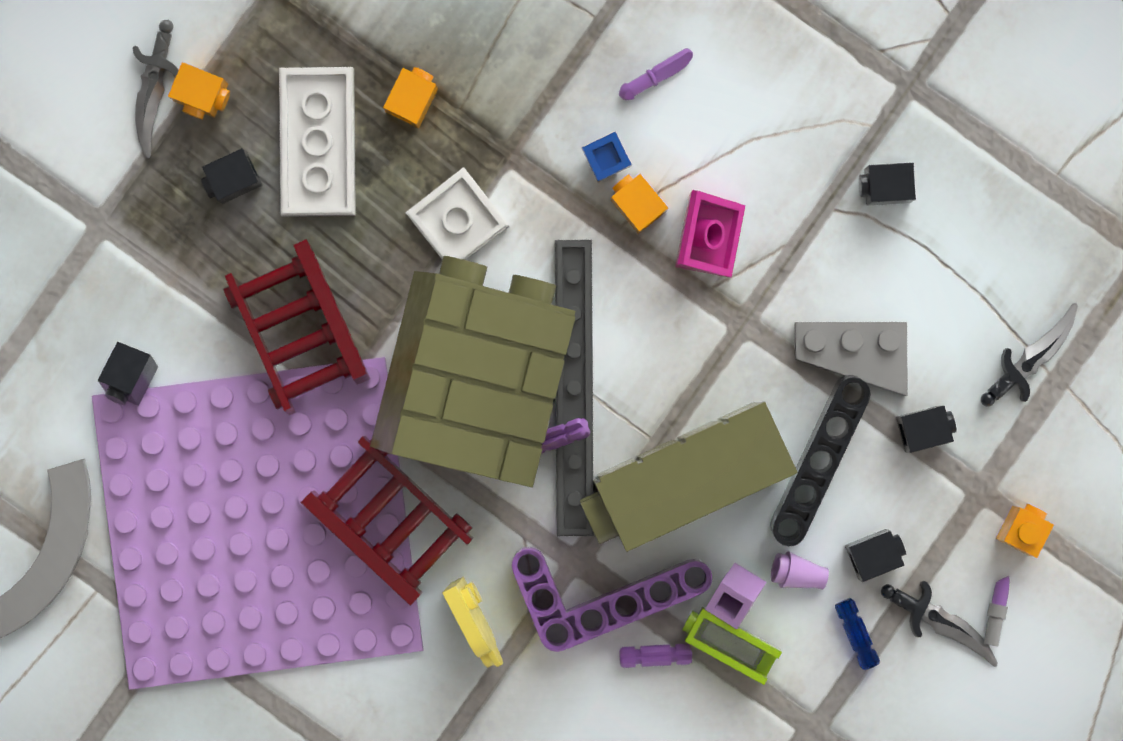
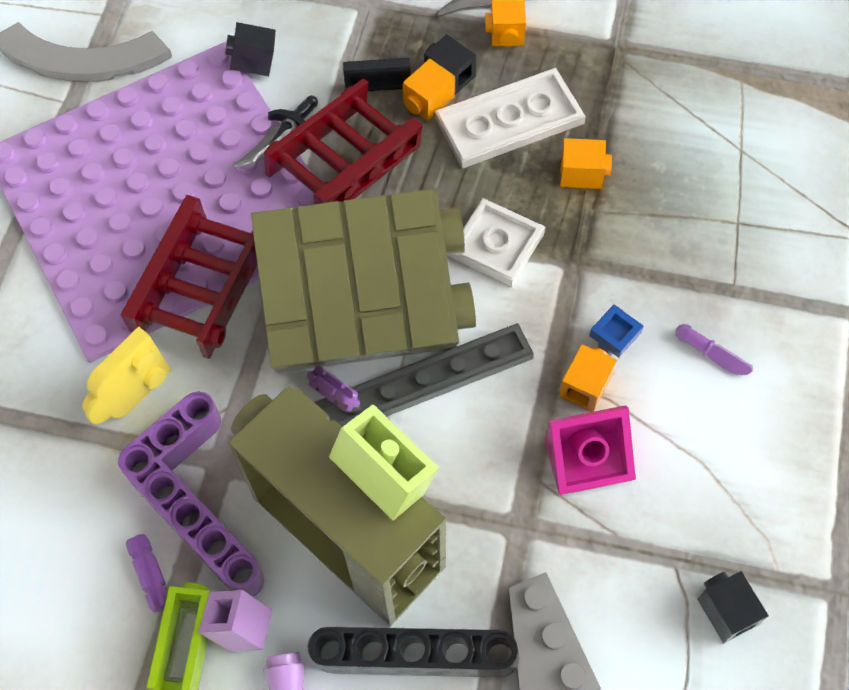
camera: 70 degrees right, 25 degrees down
(213, 256) = (380, 73): none -> black tile
(244, 379) = (290, 121): none -> piece
(255, 212) = (428, 90): none -> light orange brick
(711, 435) = (383, 461): none -> yellowish green brick

